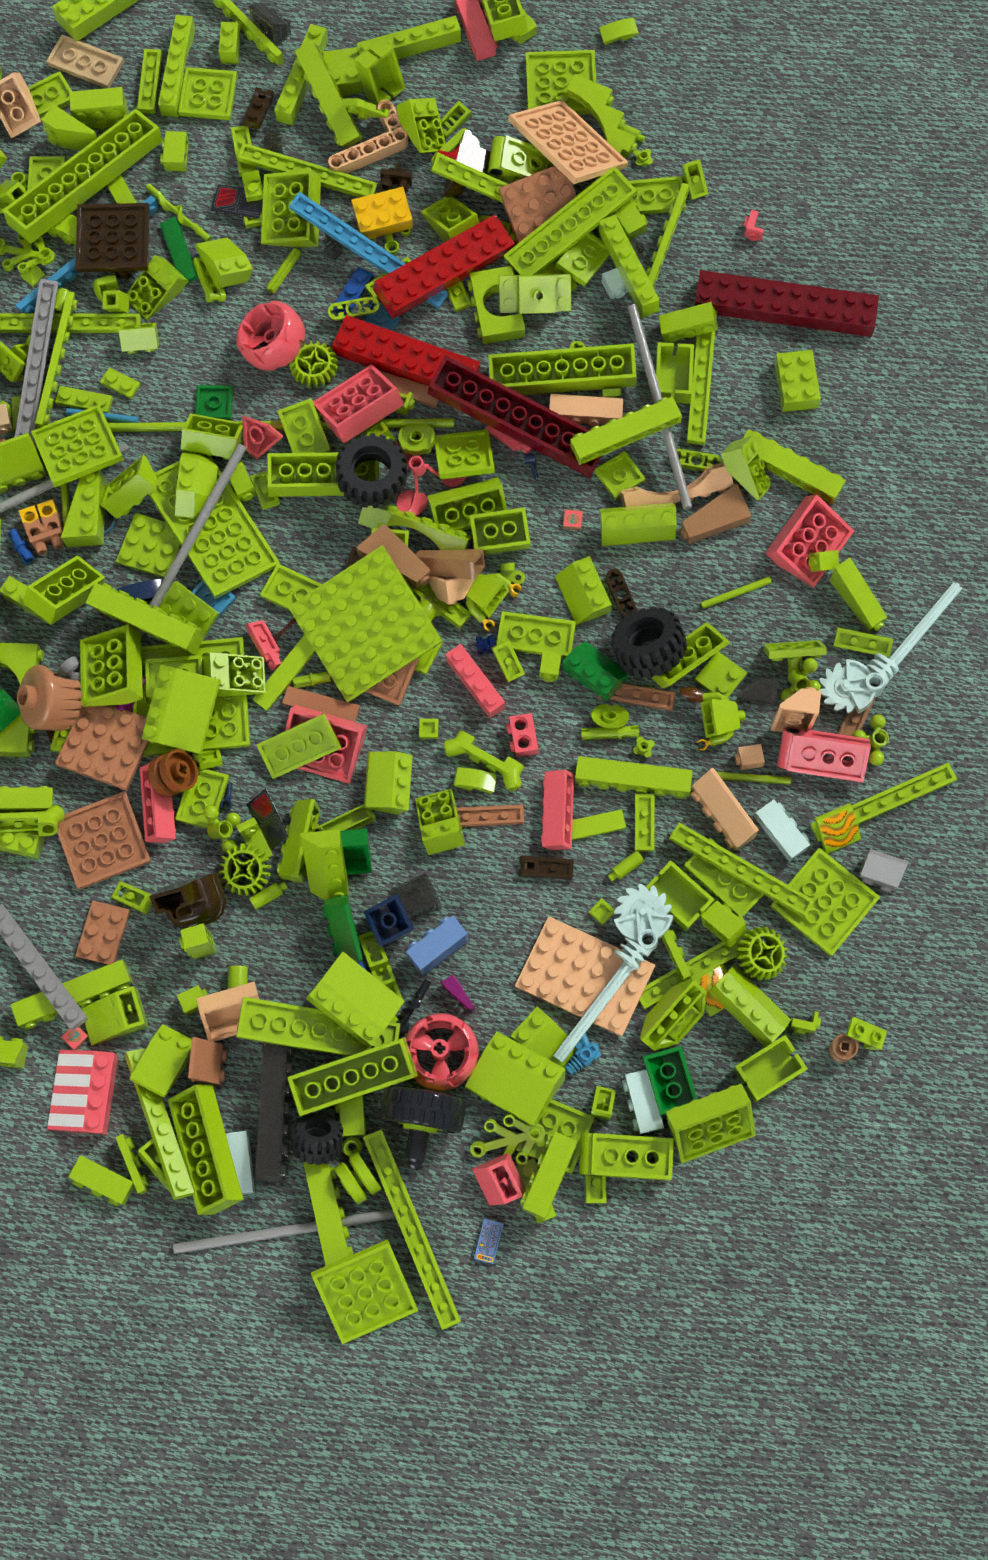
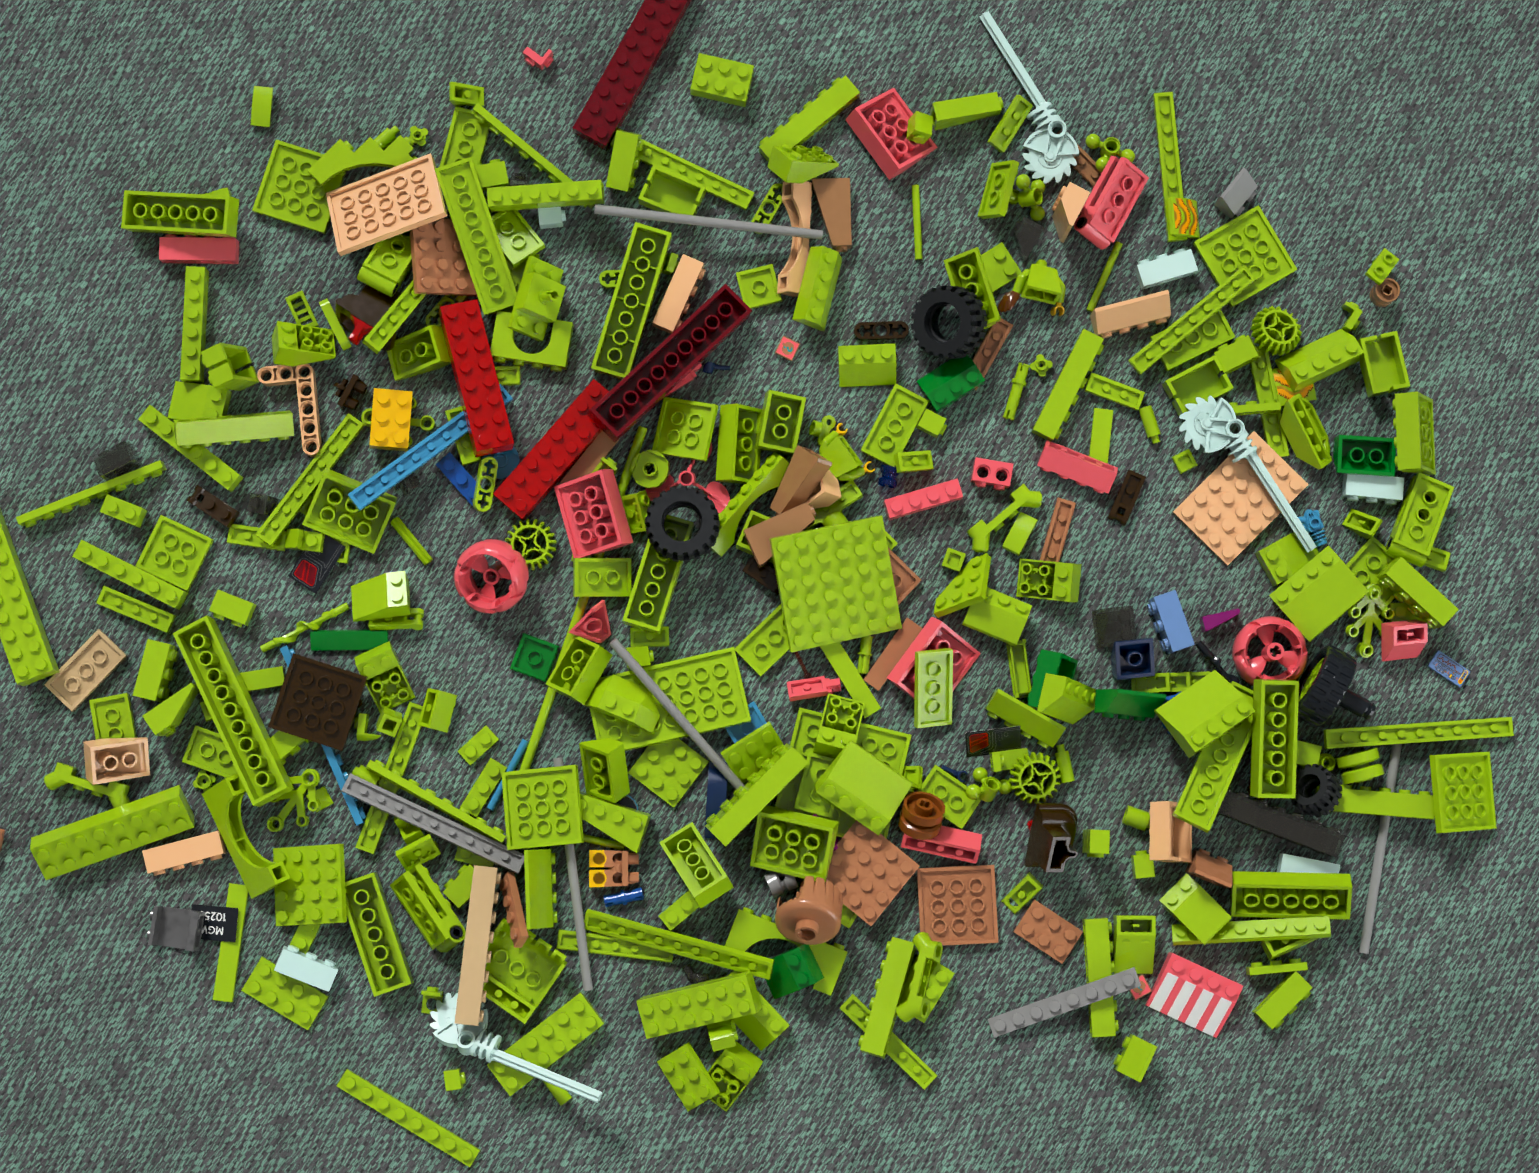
camera: 80 degrees left, 10 degrees up
(363, 109) = (265, 399): lime wing -> none
(405, 745) = (966, 588): none -> lime plate
(610, 716) = (997, 380): lime dish -> none
(626, 430) = (727, 263): lime brick -> none
(749, 757) = (1086, 271): light nougat brick -> none

